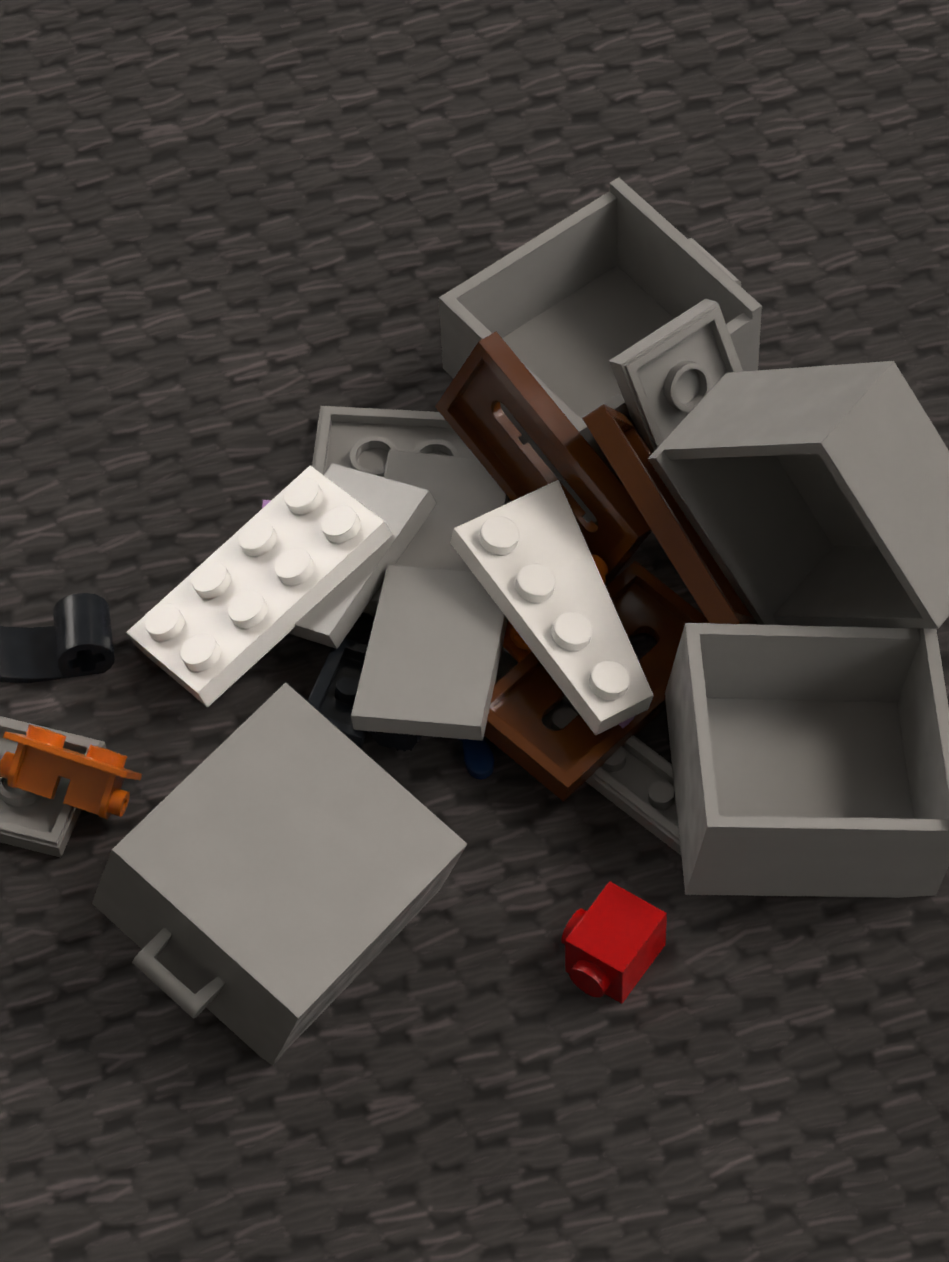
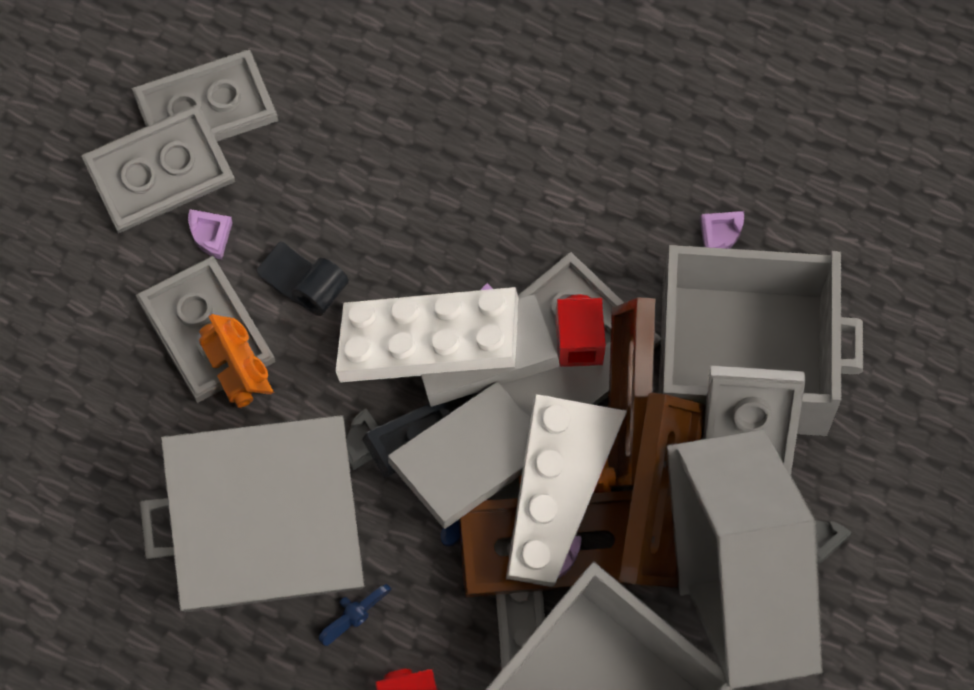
camera: 40 degrees right, 10 degrees up
(425, 450) = (580, 331): none -> red brick
(448, 270) = (721, 229): none -> lavender tile
(460, 916) = (354, 614): none -> dark blue piece

